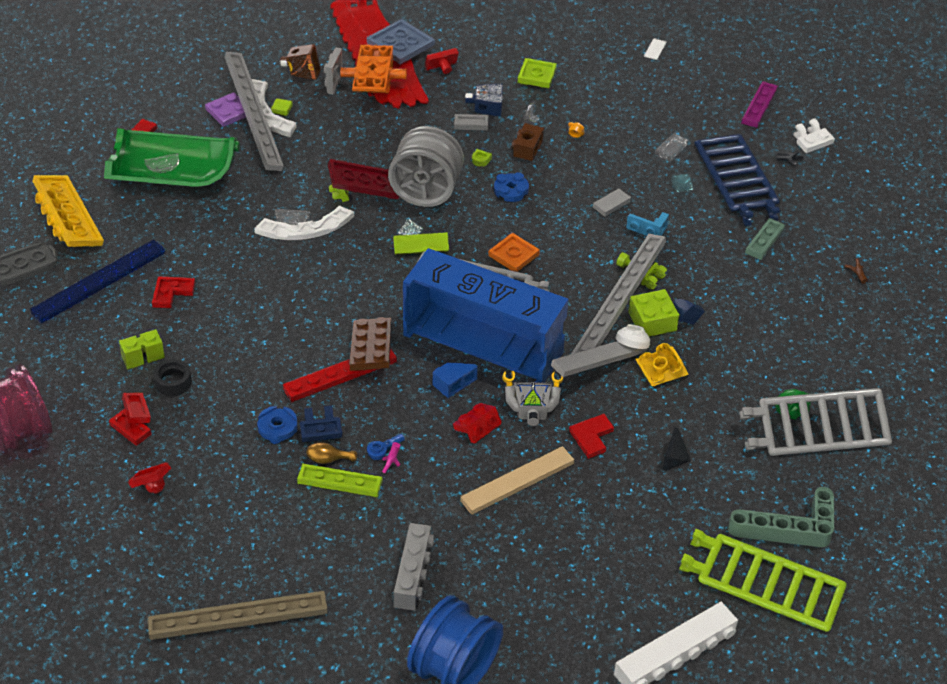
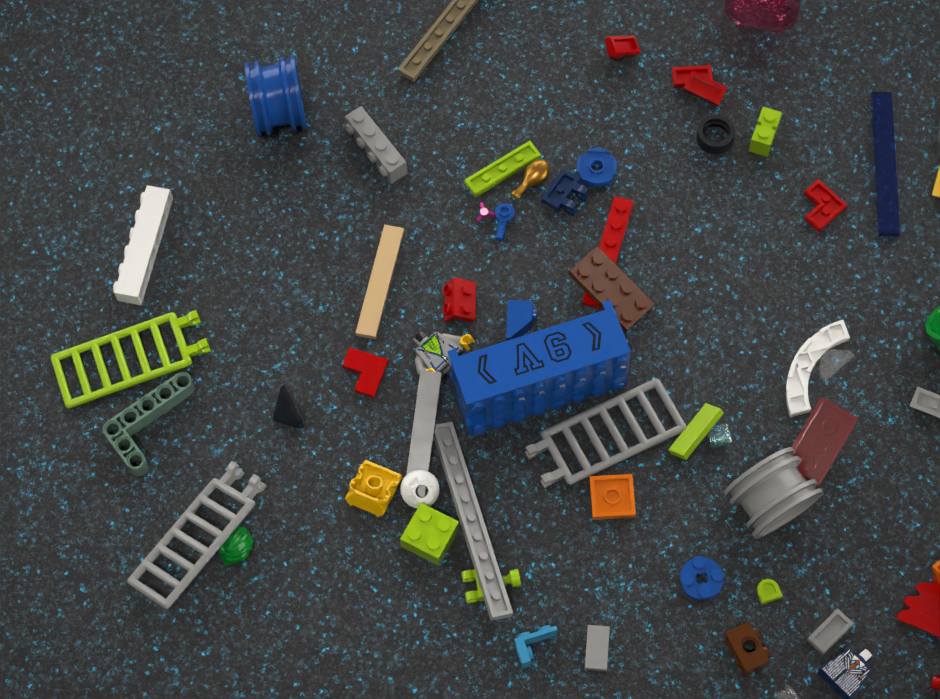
camera: 140 degrees right, 20 degrees up
(688, 311) = (399, 554): dark blue tile -> none

